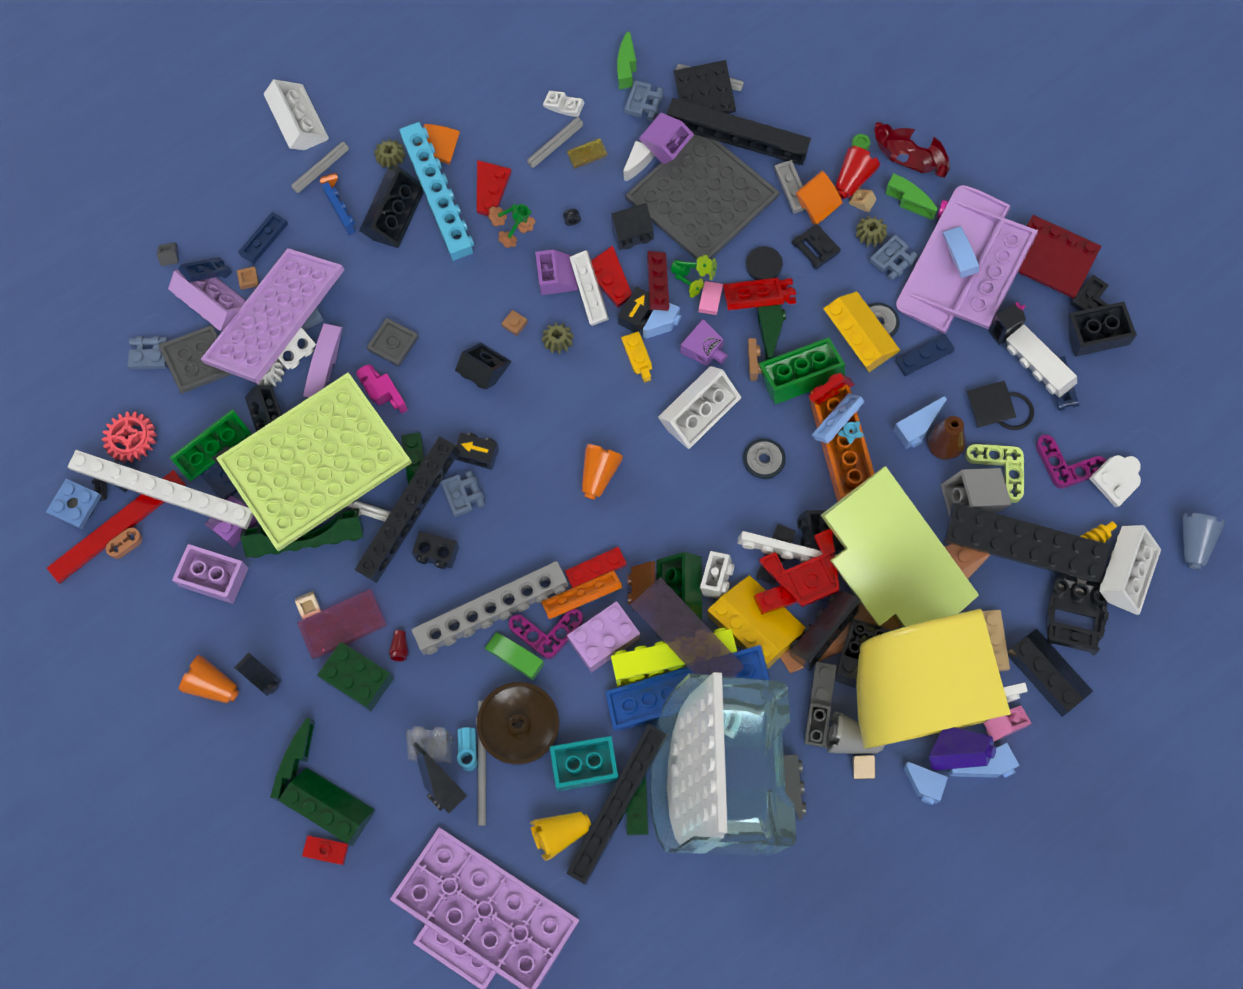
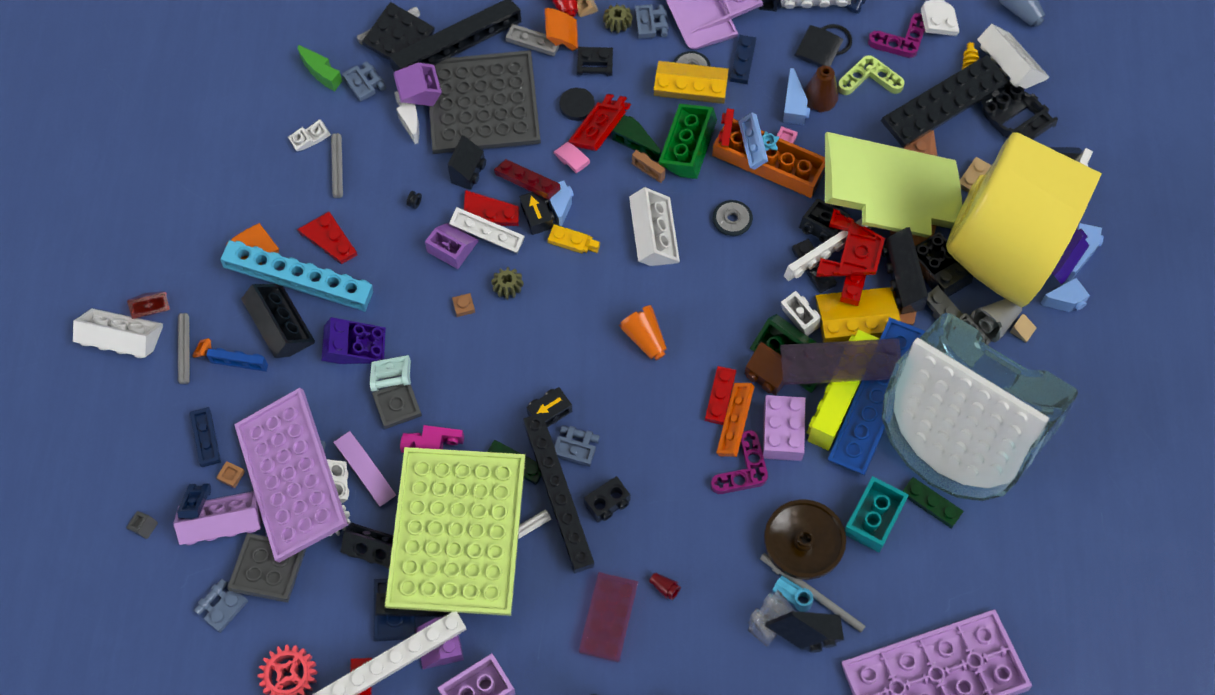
camera: 55 degrees left, 5 degrees down
(198, 453) = (359, 609): green slope -> none
(307, 605) = (567, 633): tan slope -> none
(333, 115) = (148, 304): none -> clear red slope
(343, 527) = (484, 627): dark green arch -> none
(355, 676) = (664, 636): dark green brick -> none
(389, 154) = (227, 287): olive gear -> none
(415, 313) = (390, 368): none -> light aqua plate
(417, 273) = (352, 342): none -> dark purple slope
(442, 623) = (702, 427): light grey brick -> none
(482, 365) = (480, 353): black slope -> none
(515, 656) = (745, 503): bright green slope -> none
(520, 216) = (383, 236): plant -> none
(558, 832) = (916, 575): yellow cone -> none
(587, 153) = (369, 150): clear yellow plate -> none
(617, 804) = (927, 513): black plate -> none
(703, 265) = (530, 157): plant -> none
(704, 345) = (607, 188): medium lavender torso -> none
(877, 443) = (787, 134): none -> bright pink plate
(978, 489) = (876, 102): light grey slope -> none

